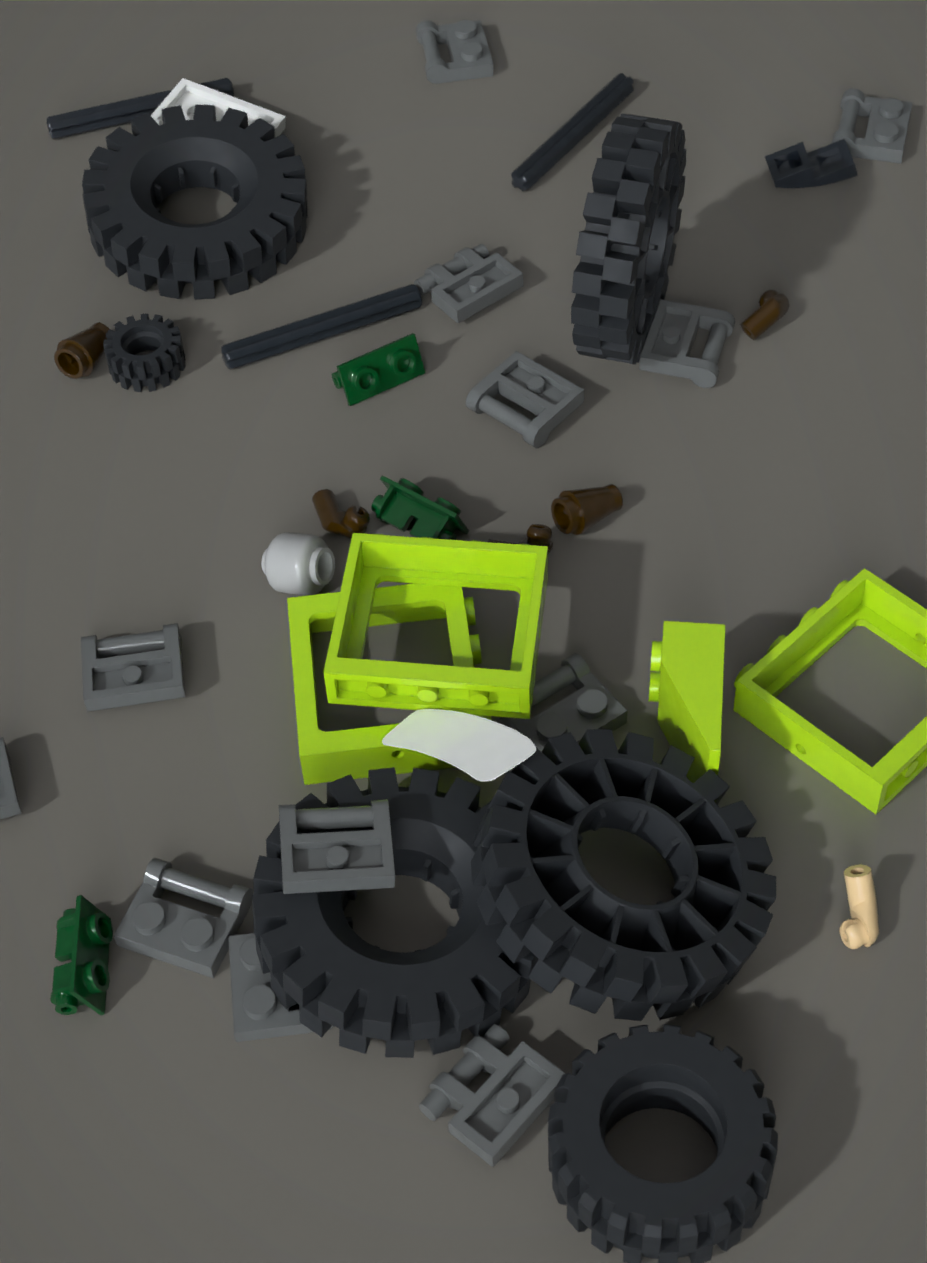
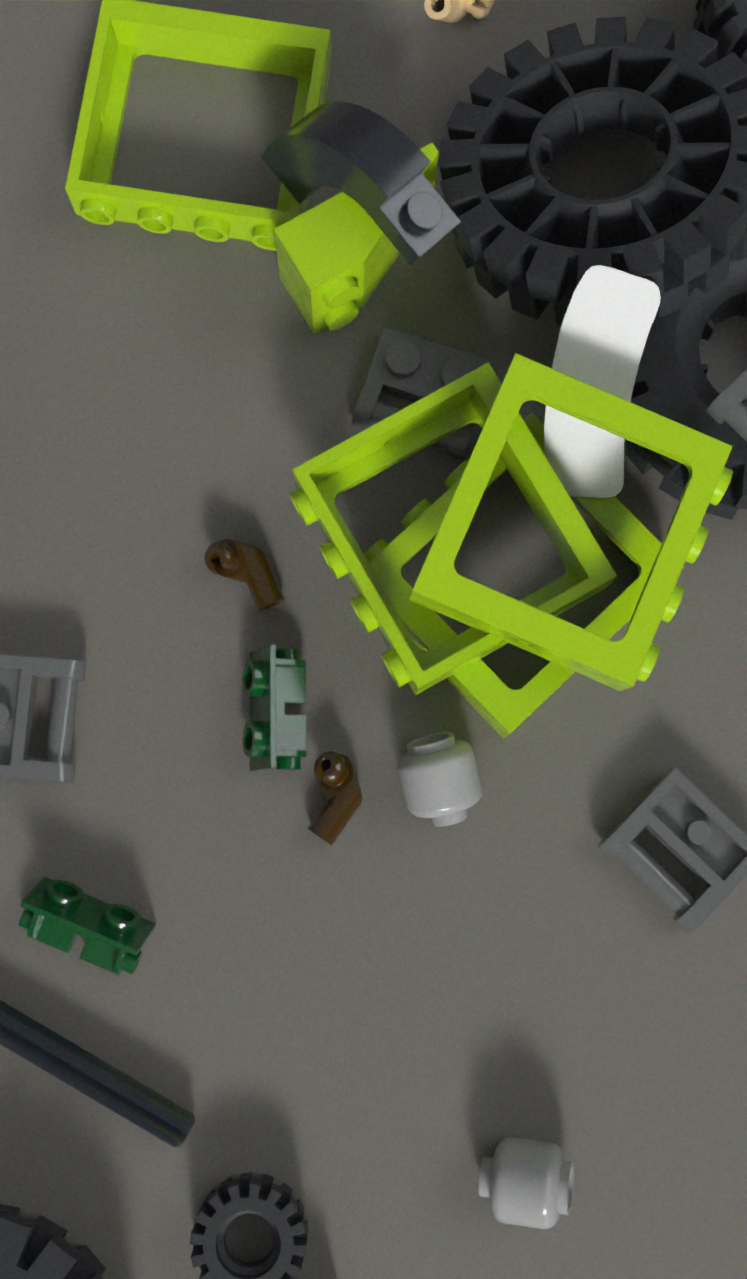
camera: 135 degrees left, 30 degrees up
(38, 477) = (527, 1182): none -> light grey head
(408, 715) = (524, 626): none -> lime piece
(583, 508) = (149, 538): dark brown cone -> none
(725, 682) = (370, 163): none -> black arch

